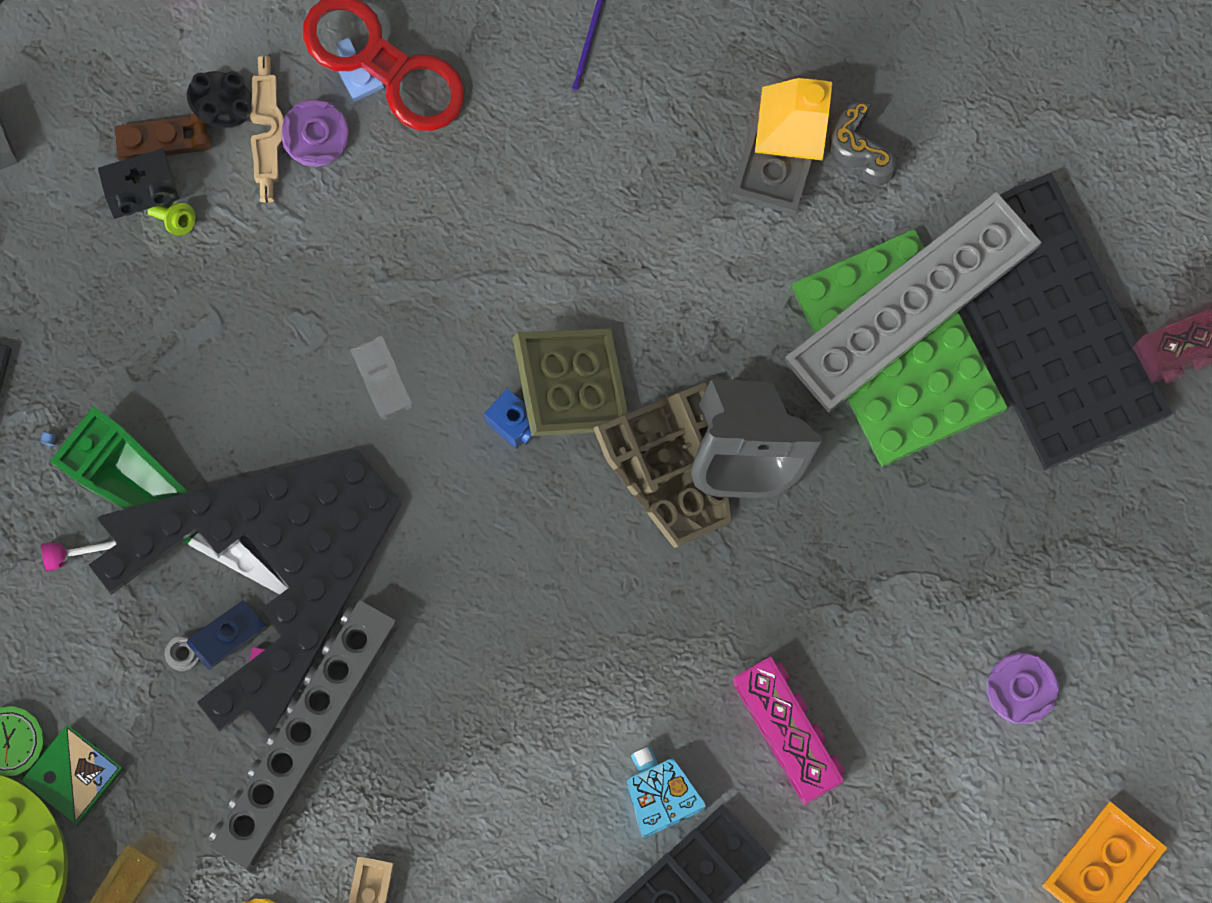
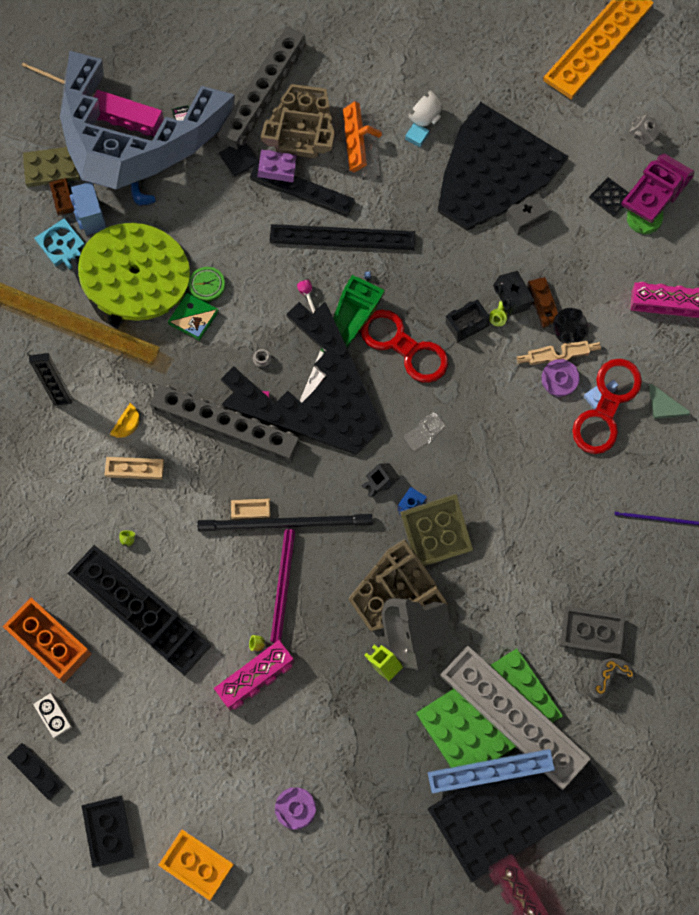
camera: 85 degrees right, 5 degrees down
(175, 272) = (467, 320): none -> black window
(207, 389) = (406, 347): none -> red bar
(226, 634) = (273, 376): dark blue plate -> none
(459, 464) = (381, 478): none -> black brick
(477, 706) = (250, 509): none -> tan tile
(498, 775) = (213, 525): none -> black piece
(629, 664) = (282, 587): none -> magenta axle
(661, 794) = (212, 610): medium azure torso -> none
(730, 729) = (256, 643): none -> lime hinge
(792, 504) = (384, 662): none -> lime brick
(794, 118) = (615, 635): yellow slope -> none
(1001, 351) = (491, 771): none -> medium blue plate

